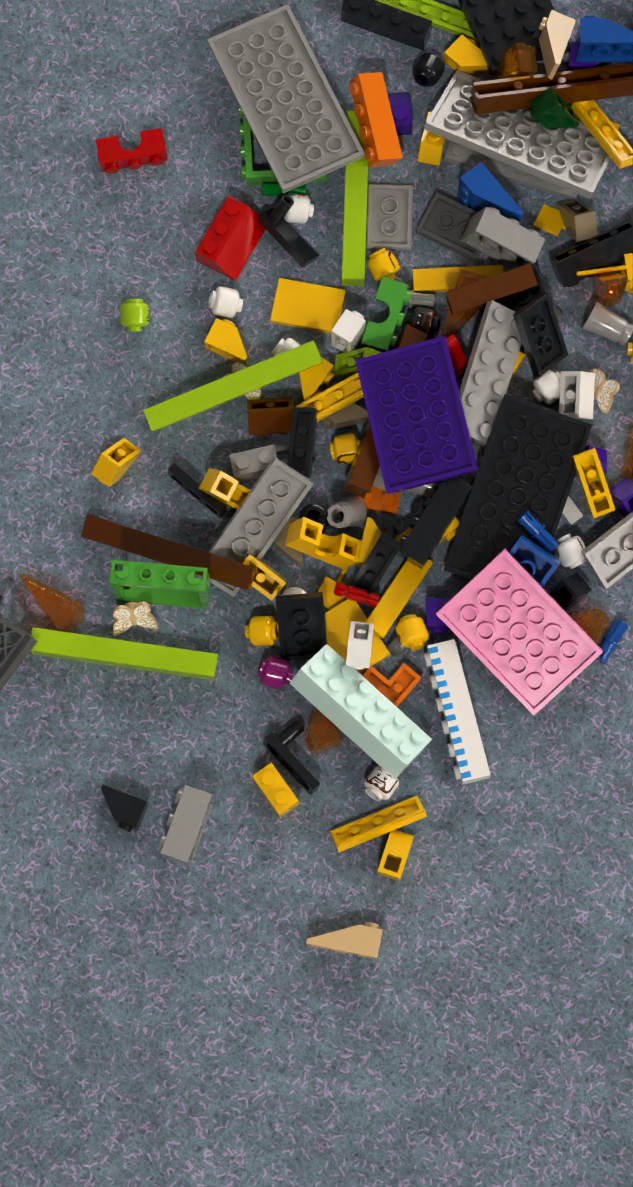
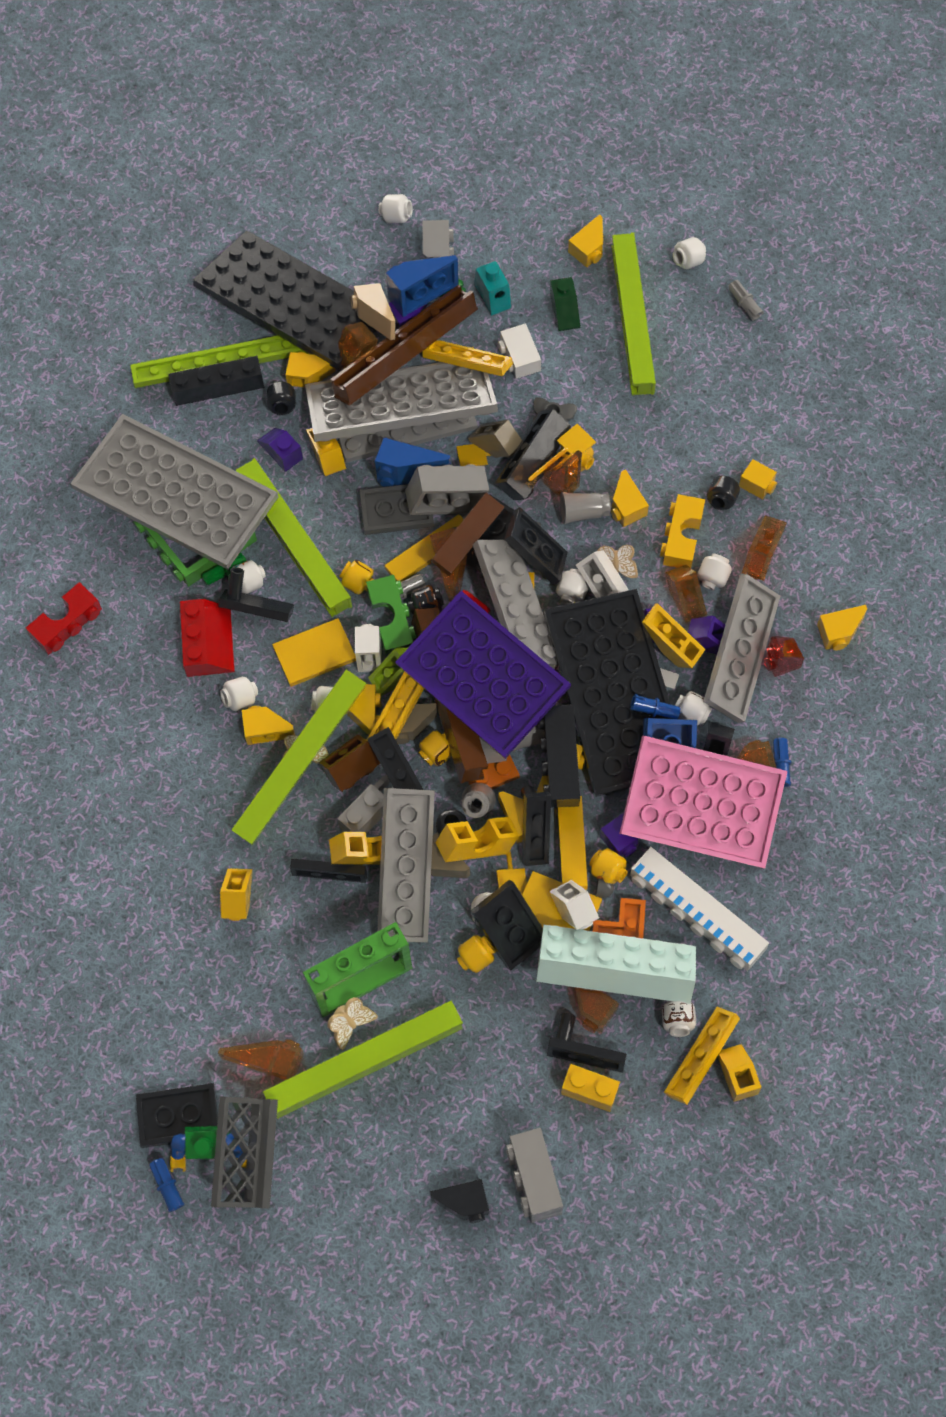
camera: 35 degrees left, 10 degrees down
(134, 315) = (163, 755): lime head -> none
(167, 551) = (338, 939): reddish brown tile -> none
(265, 579) = (442, 905): yellow slope -> none
(275, 672) = (513, 983): magenta head -> none
(354, 940) = (762, 1173): tan slope -> none
(356, 594) = (536, 866): red axle -> none
(375, 119) = (266, 460): orange brick -> none
(389, 217) = (334, 535): light grey tile -> none
(552, 111) = (411, 365): dark green slope -> none

